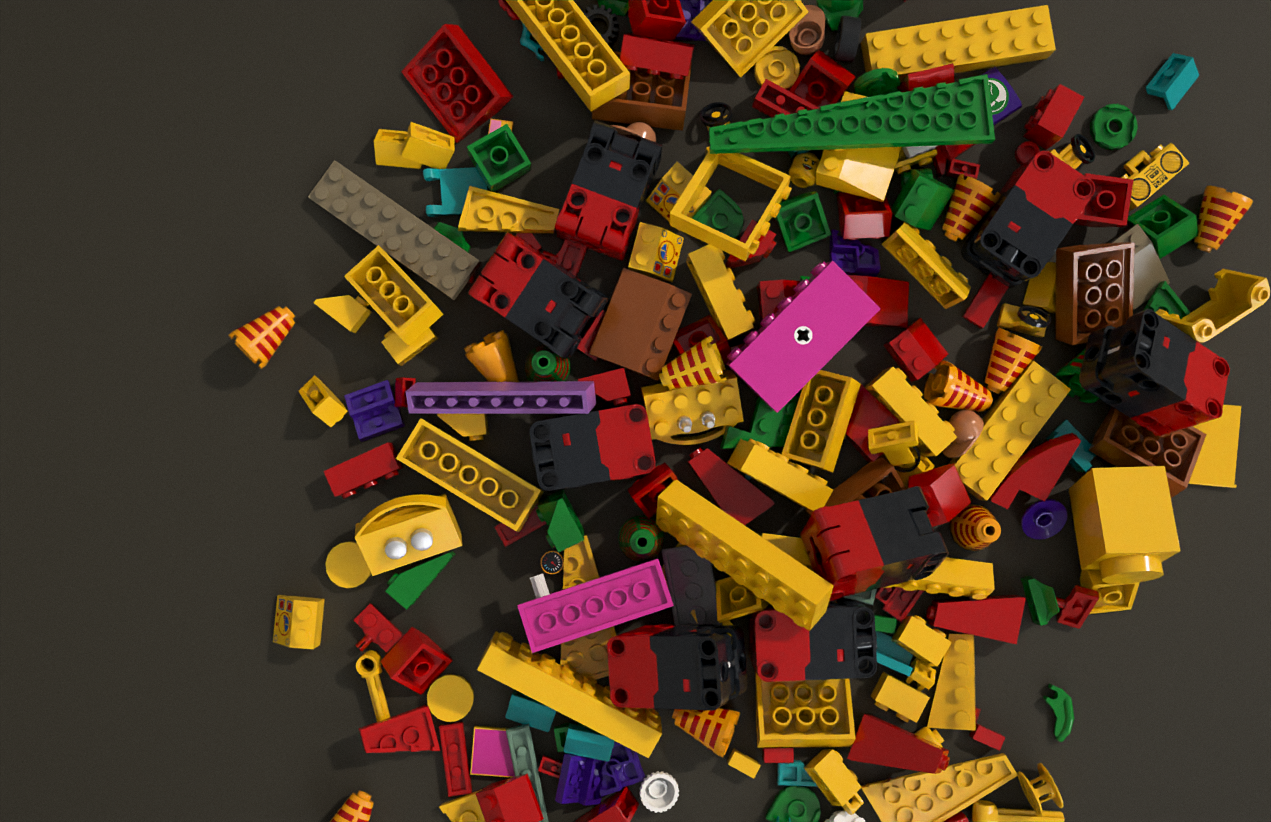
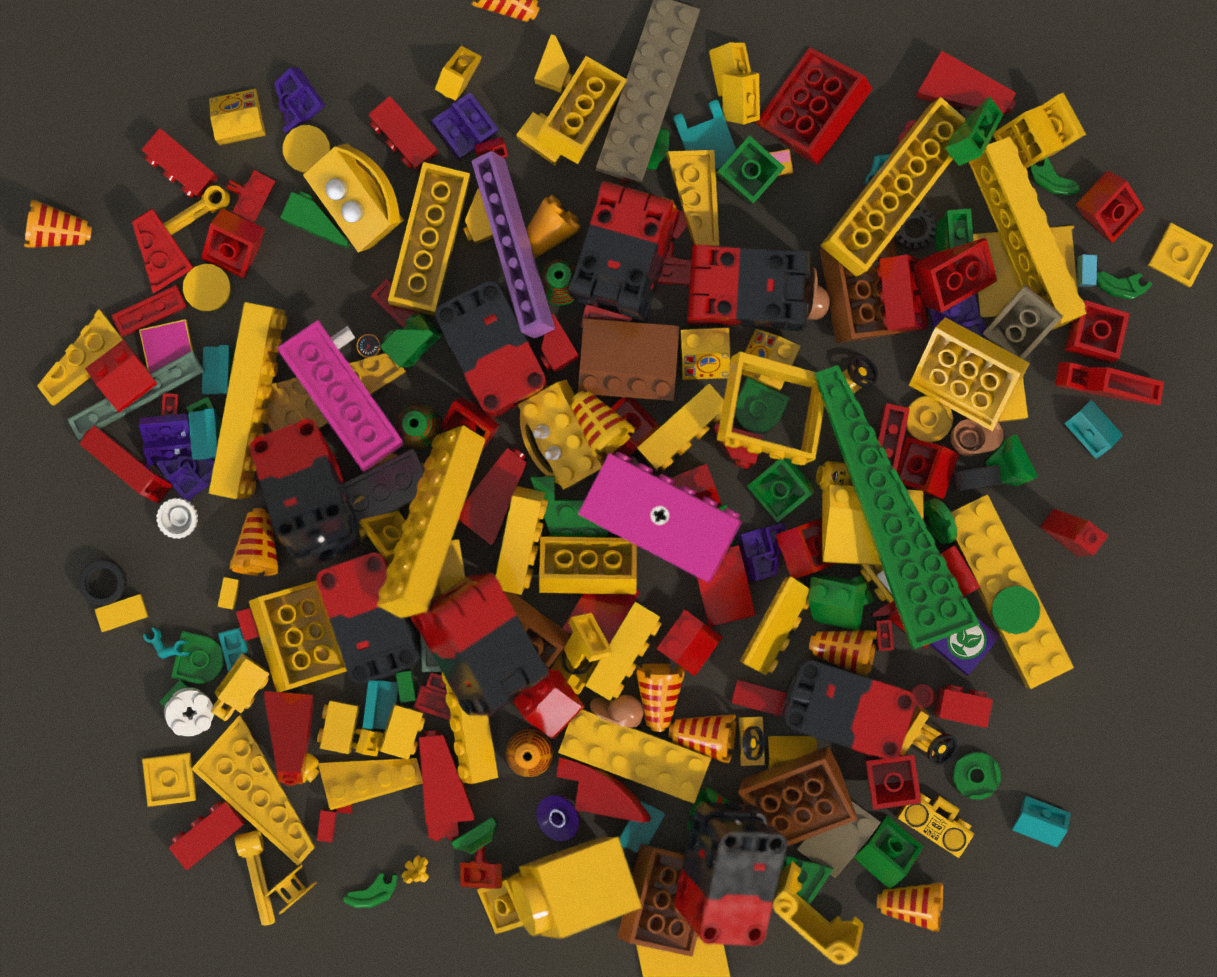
camera: 80 degrees right, 0 degrees up
(299, 559) = (297, 98): none -> dark purple slope
(325, 690) = (178, 164): none -> red brick
(981, 38) = (1015, 610): none -> green tile
(1026, 626) = (442, 830): none -> red piece
(1053, 665) = (416, 870): none -> yellow plant

